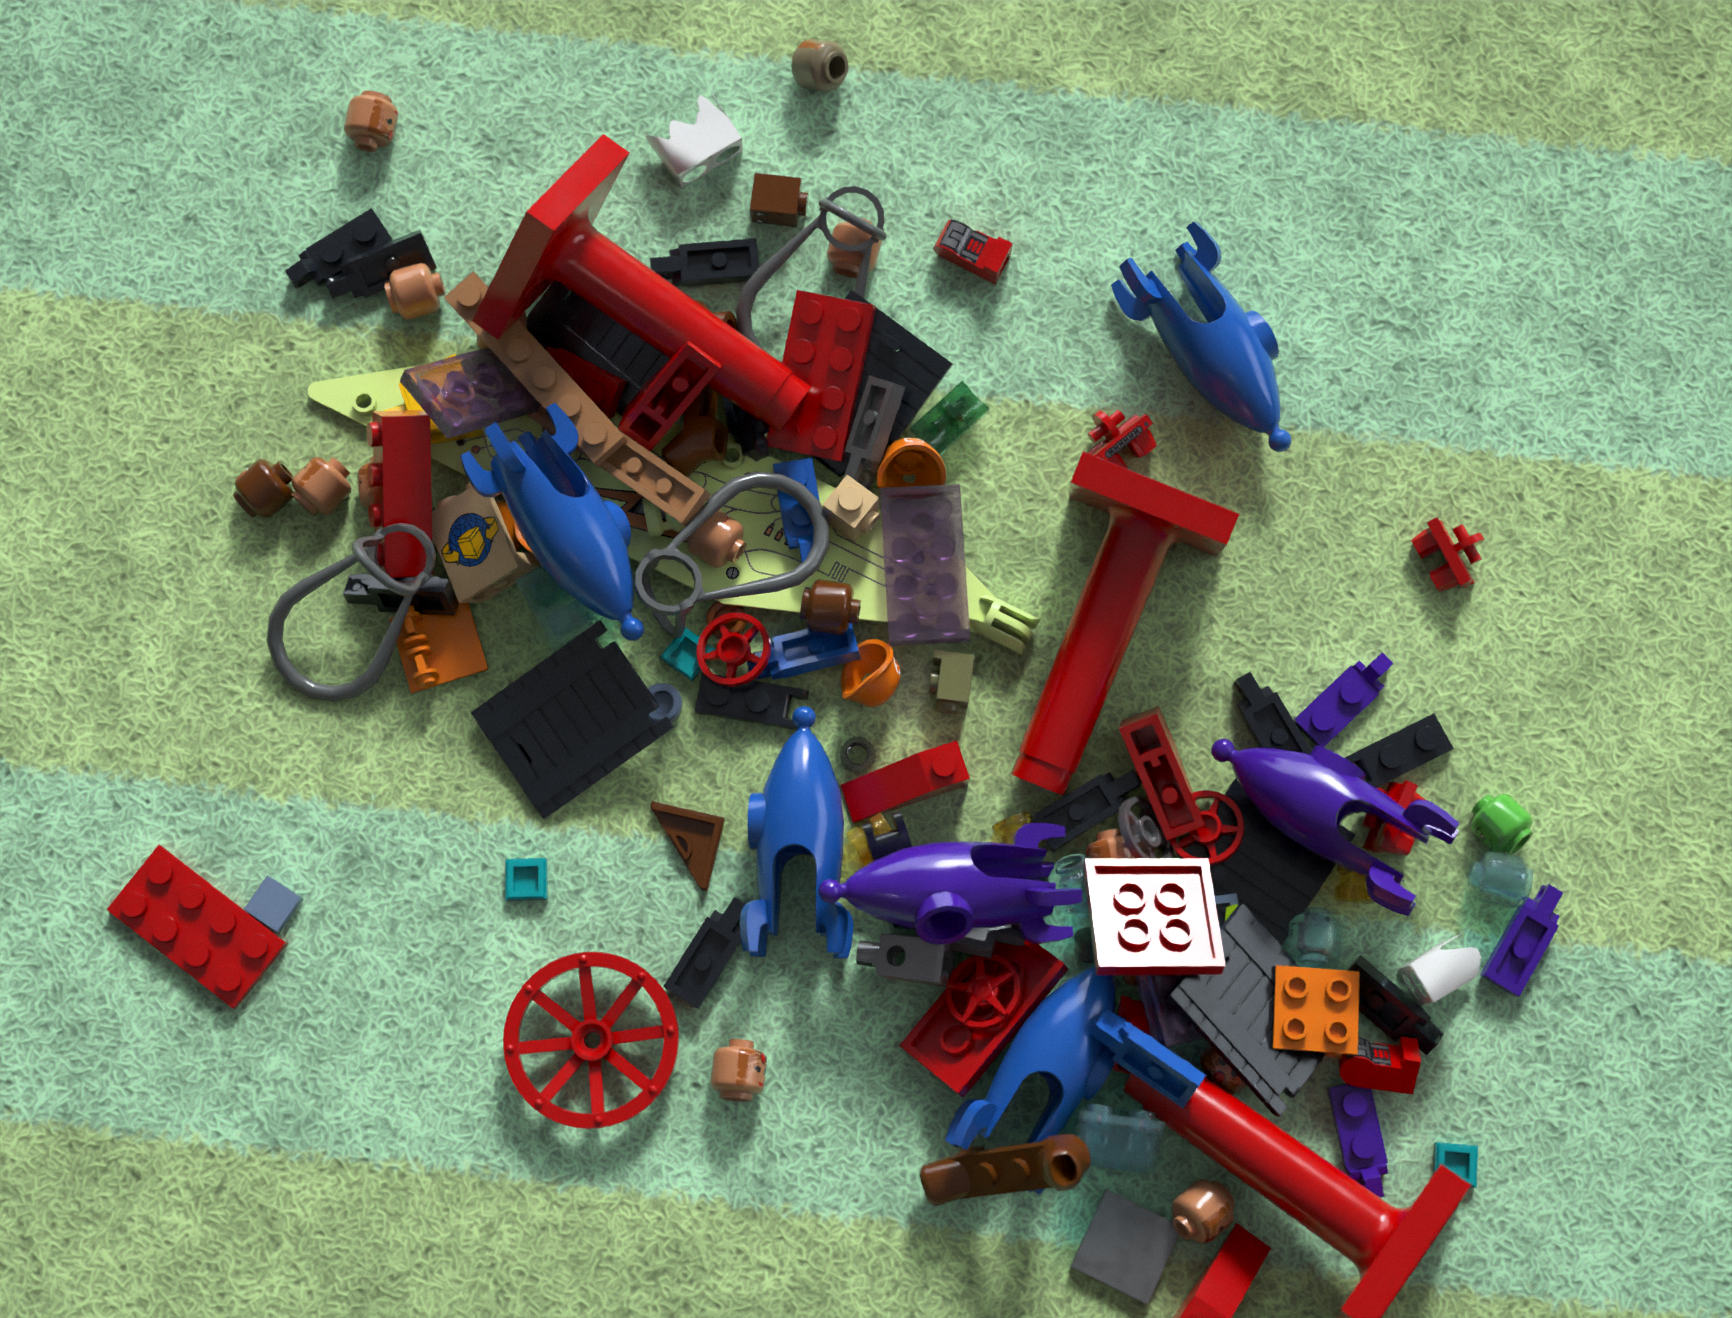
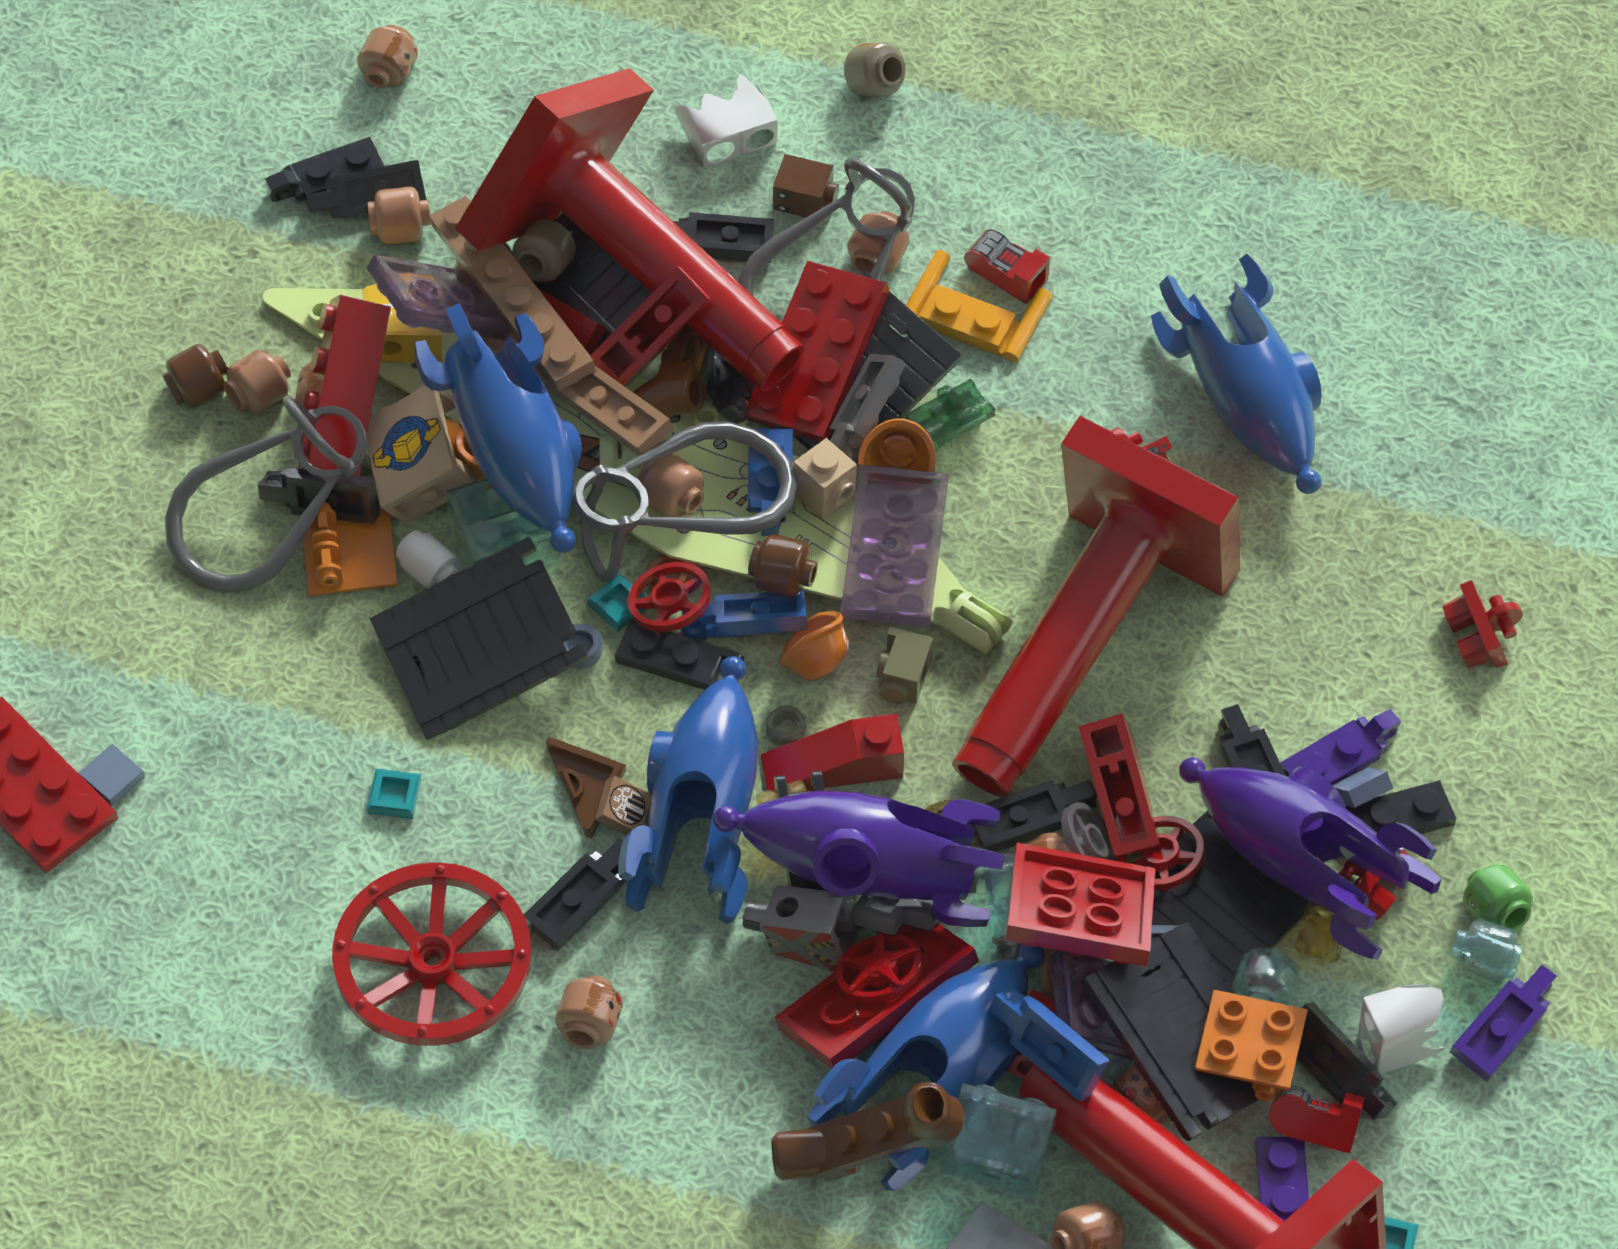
camera: 10 degrees right, 20 degrees down
(512, 645) = (427, 558): none -> white brick
(555, 316) = (544, 250): none -> dark tan head
(730, 862) = (622, 805): none -> medium nougat tile
(948, 310) = (973, 319): none -> light orange plate
(1368, 733) = (1363, 786): none -> sand blue tile

